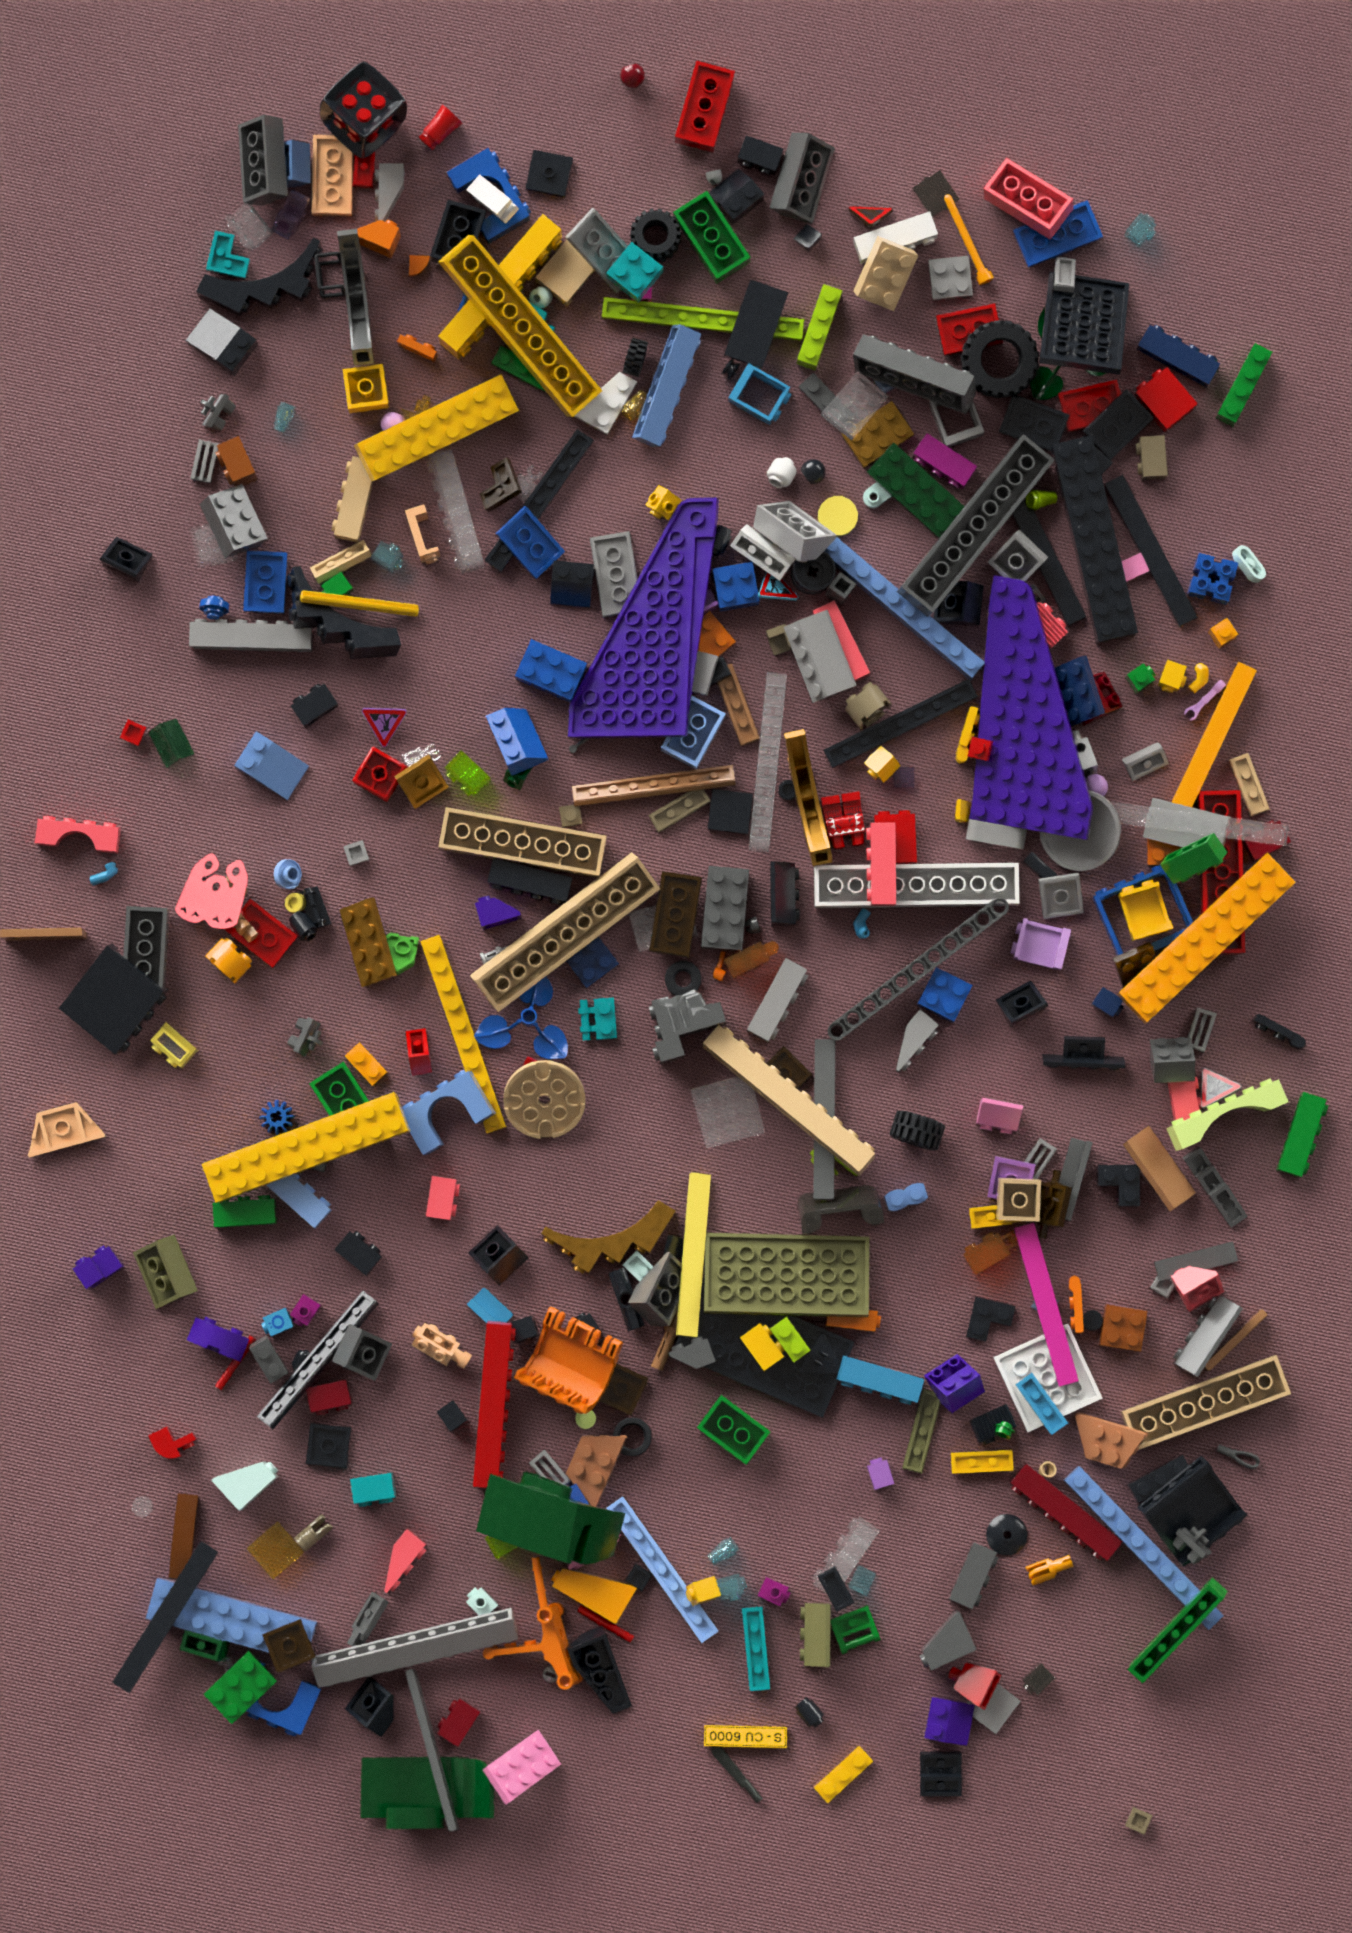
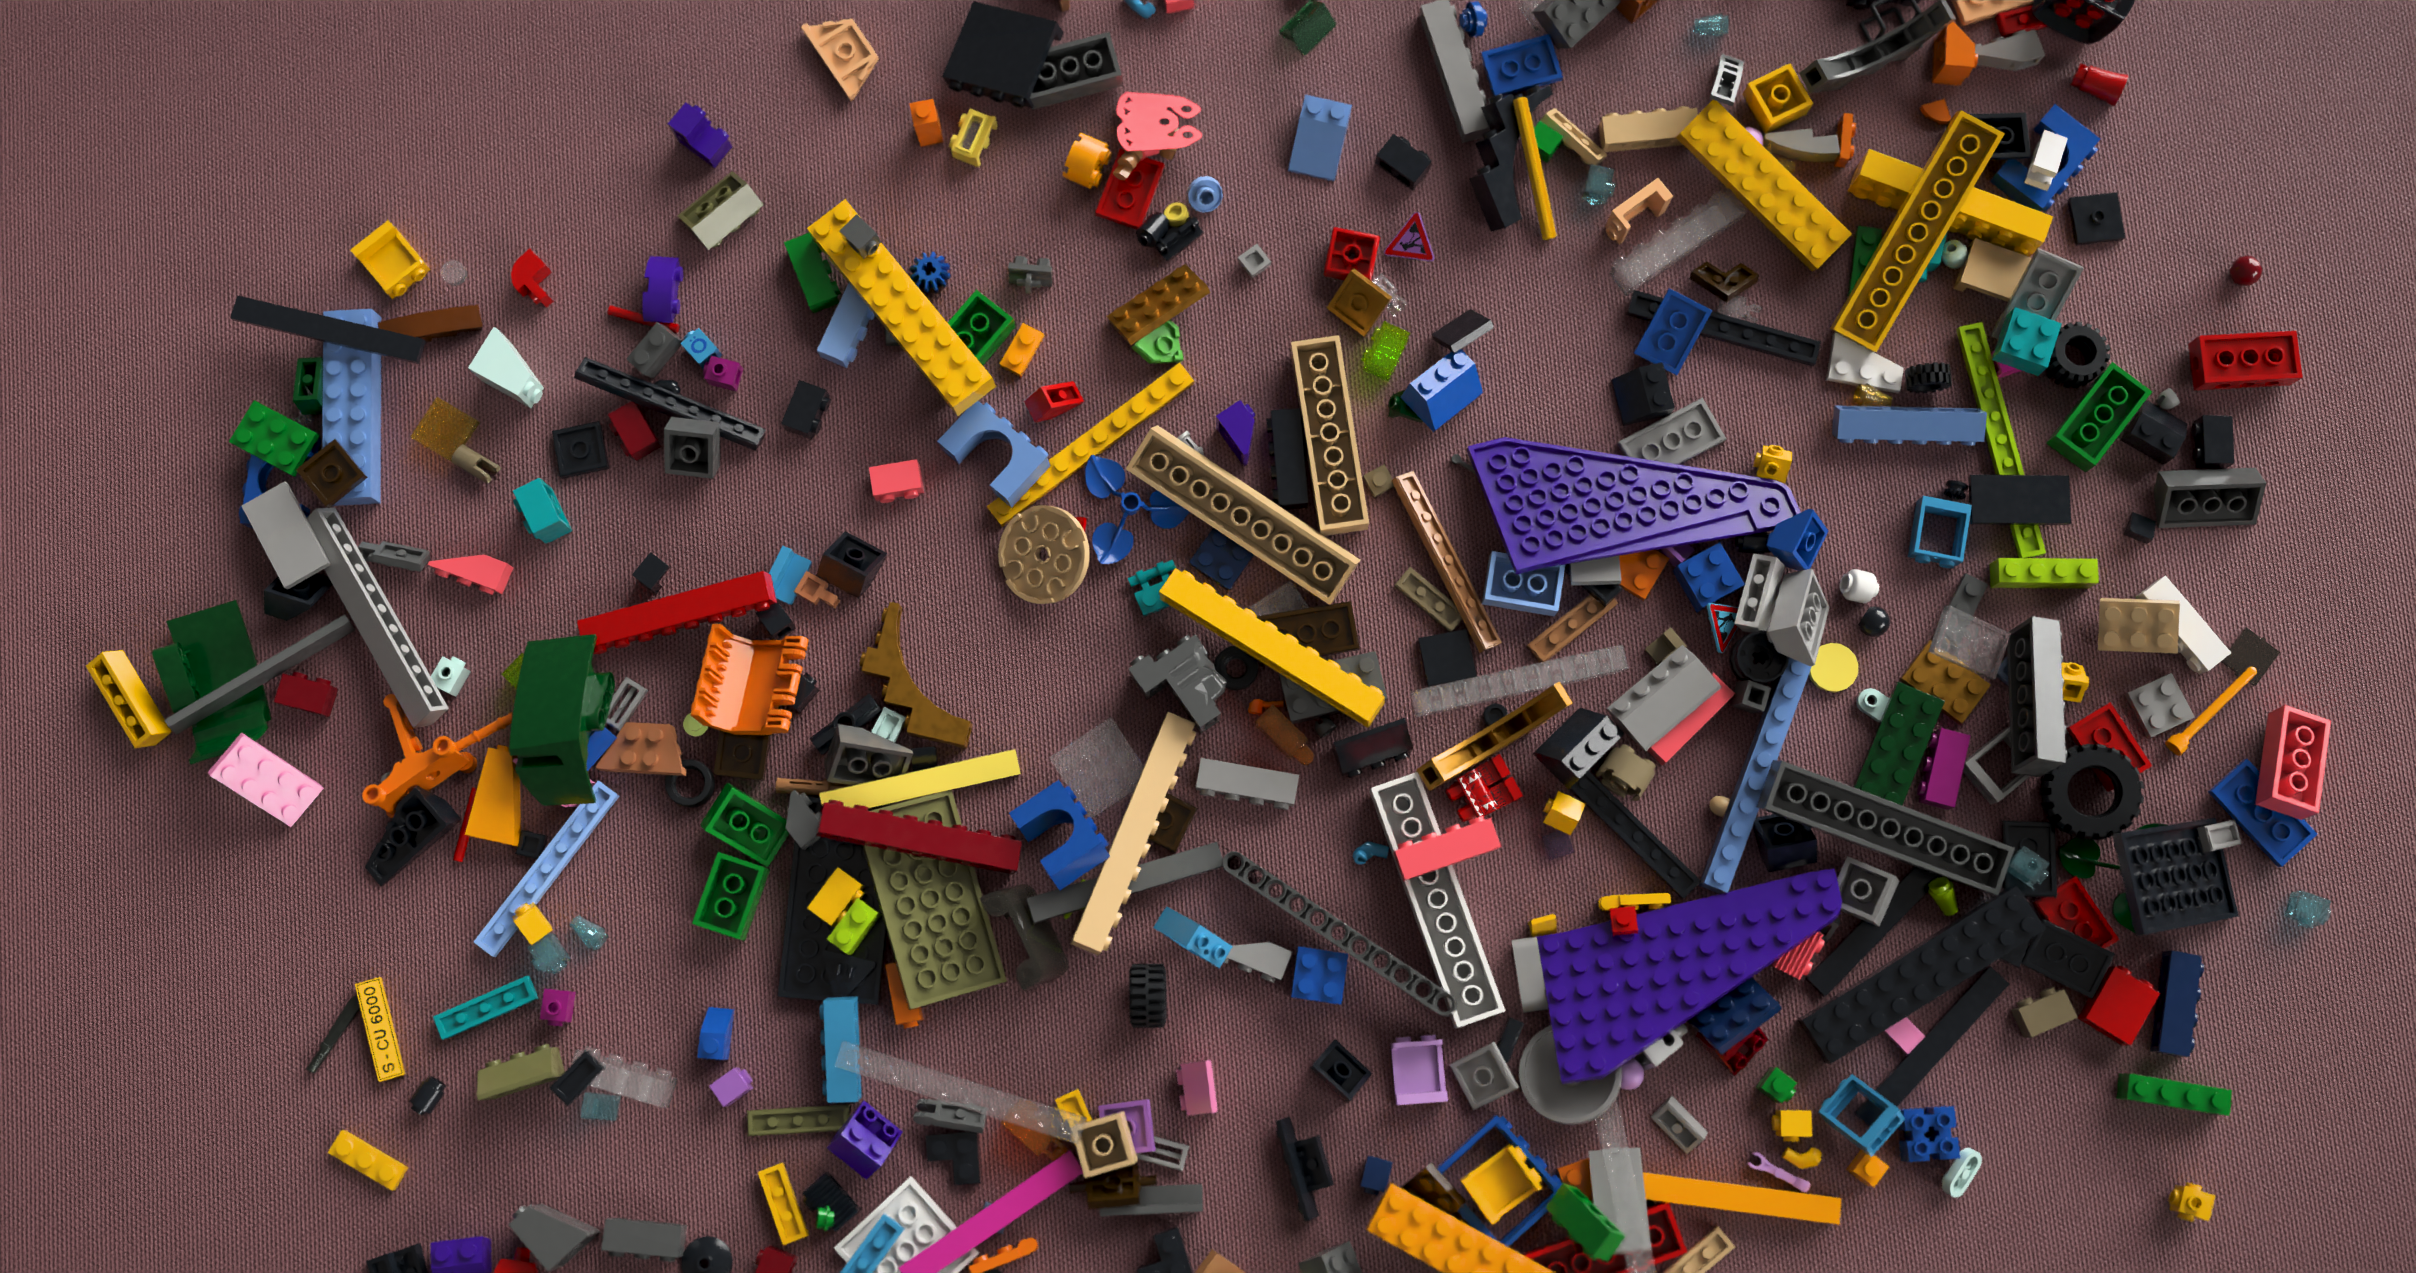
camera: 75 degrees right, 5 degrees down
(116, 1554) = (390, 259): none -> yellow panel
(152, 1079) = (926, 122): none -> orange brick
(243, 1159) = (860, 236): none -> dark grey brick
(325, 1698) = (286, 535): none -> light grey tile
(340, 425) = (1726, 80): none -> slope
(410, 382) = (1803, 146): none -> light grey slope
(415, 1864) = (128, 698): none -> yellow brick
(439, 1346) = (727, 532): light nougat brick -> none
(473, 707) = (1462, 330): none -> black tile
(508, 1291) = (814, 589): none -> nougat plate
(551, 671) = (1535, 403): blue brick -> none
(679, 1401) = (746, 824): none -> green slope
(680, 945) = (1272, 647): none -> yellow brick
(731, 507) = (1798, 540): none -> blue slope
(738, 1267) = (918, 838): none -> dark red brick
(790, 1140) = (1081, 851): none -> blue arch
(834, 735) = (1578, 745): none -> black slope
(835, 1474) = (716, 1034): none -> blue slope
(851, 1623) = (548, 1113): green plate -> none
(870, 215) = (2195, 589): piece -> none
(884, 1081) = (1193, 937): none -> dark azure window
(901, 1198) = (1062, 1002): medium blue brick -> none
(905, 834) = (1489, 865): red panel -> none
(911, 339) = (2074, 682): none -> yellow brick
(915, 643) = (1719, 805): none -> tan hinge
(944, 1295) = (960, 1092): none -> clear plate
(957, 1311) = (949, 1116): none -> dark grey hinge
(1040, 428) = (2028, 867): none -> clear light blue brick
(1197, 613) = (1882, 1127): none -> dark azure window
(1329, 398) = (2191, 1202): none -> yellow brick

